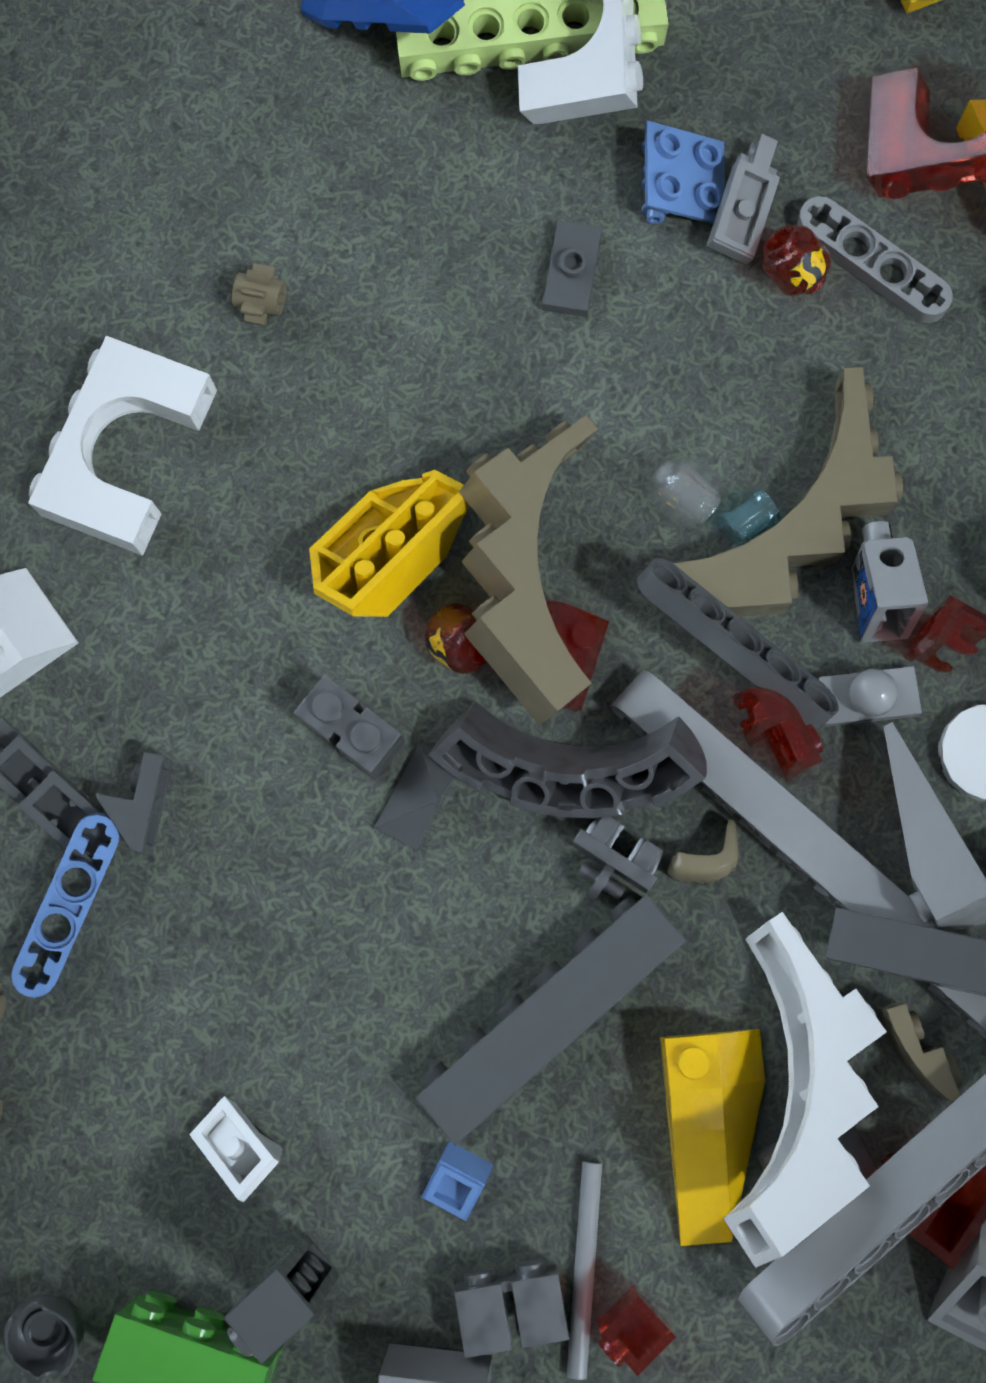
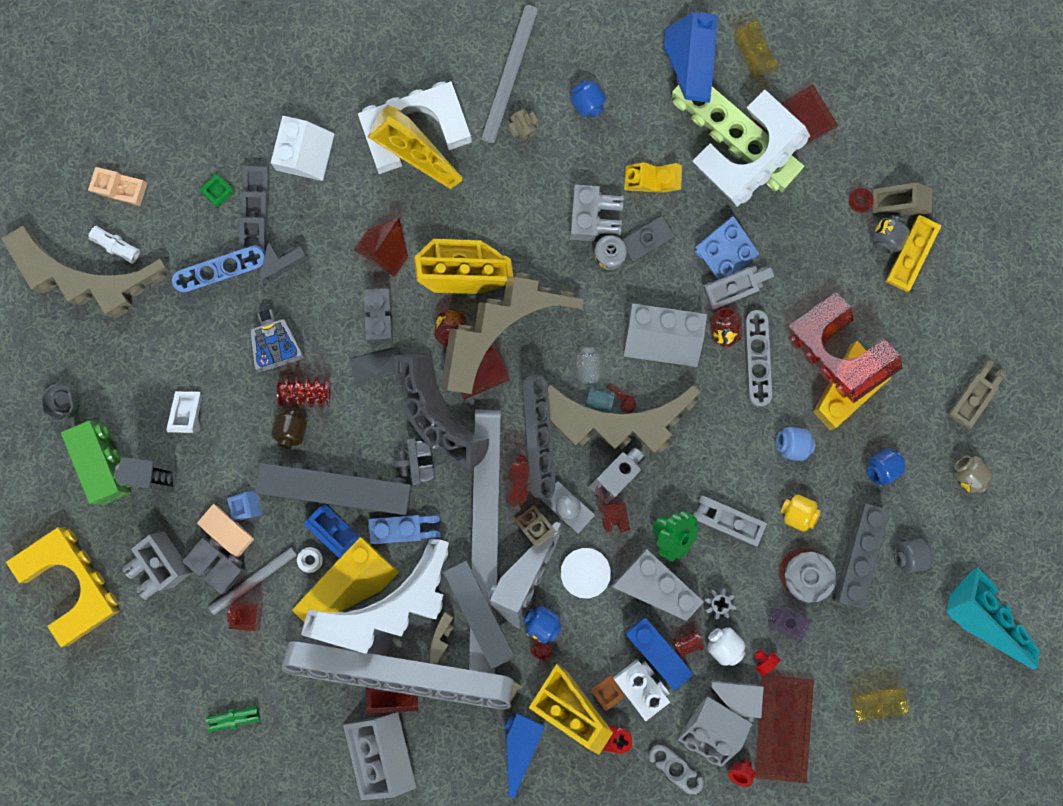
camera: 40 degrees right, 5 degrees up
(134, 465) = (405, 140): none -> yellow wedge
(170, 258) = (509, 74): none -> light grey axle
(251, 918) = (274, 343): none -> torso
(254, 634) = (384, 246): none -> clear red slope
(303, 179) = (588, 98): none -> blue head
(364, 935) = (303, 392): none -> clear red piece
(401, 1007) = (289, 429): none -> dark brown head
(461, 314) = (585, 218): none -> light grey brick
(472, 1244) = (225, 531): none -> light nougat slope
(489, 195) = (652, 178): none -> yellow slope
(549, 327) = (610, 244): none -> light grey head
(614, 1076) = (331, 530): none -> blue hinge
(643, 1153) = (301, 560): none -> white plate
(696, 969) = (400, 529): none -> medium blue hinge
(707, 868) = (444, 502): dark tan hair -> none
(732, 351) = (664, 335): none -> light grey slope
(785, 483) = (628, 401): none -> clear red hand
(867, 762) = (535, 526): none -> dark tan slope

